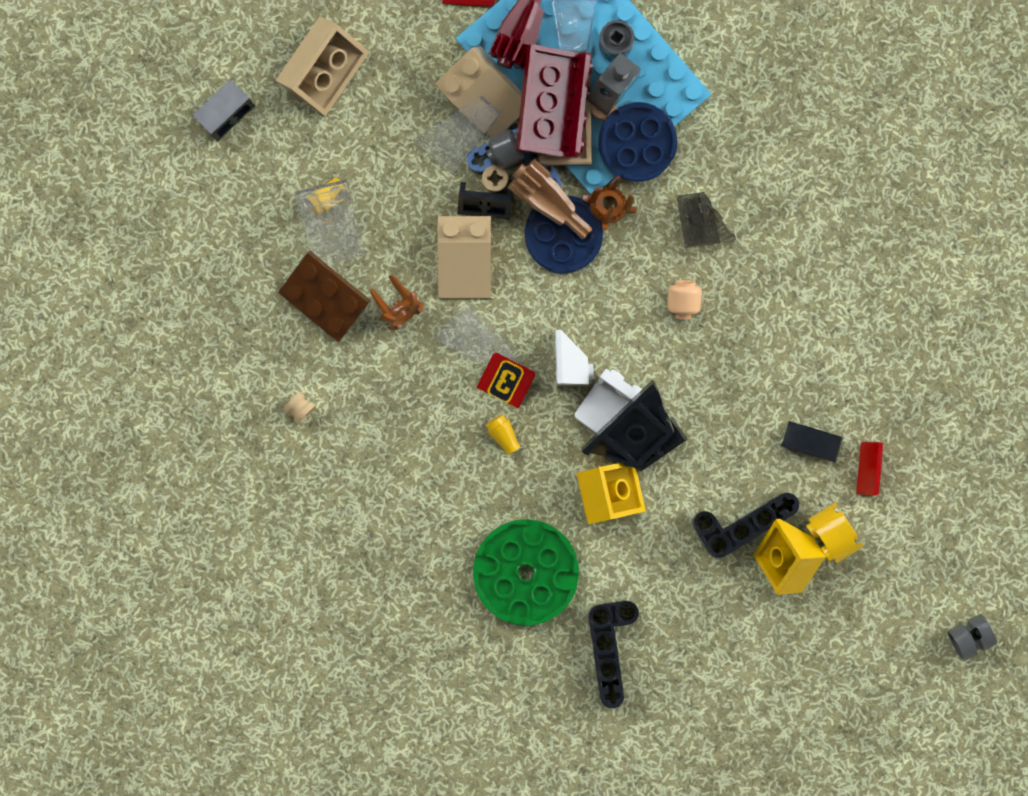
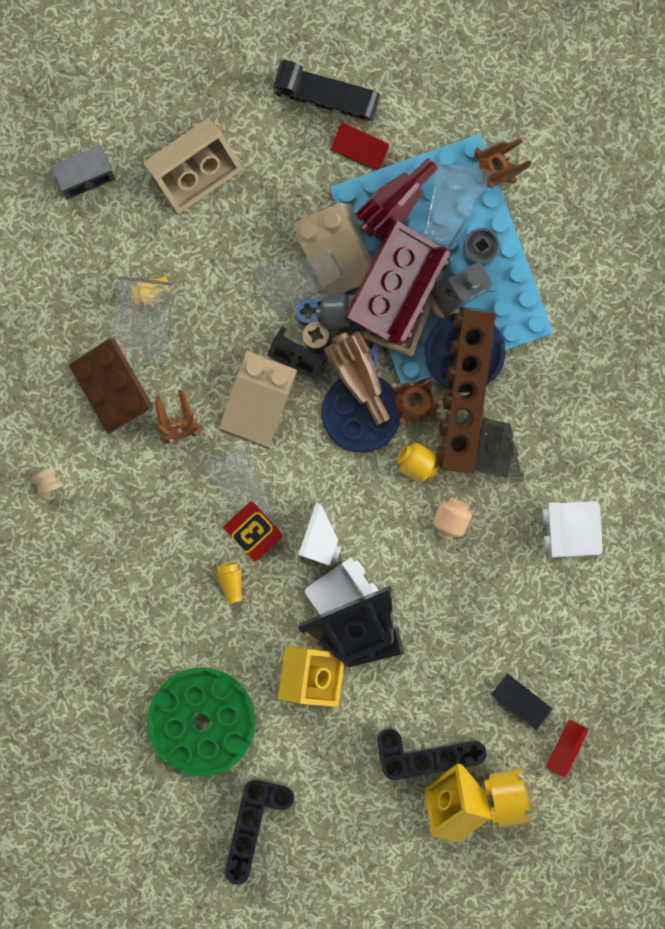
camera: 20 degrees right, 0 degrees up
(633, 259) = (417, 462): none -> yellow head
(674, 239) = (464, 458): none -> reddish brown brick
(797, 266) = (572, 529): none -> white bracket

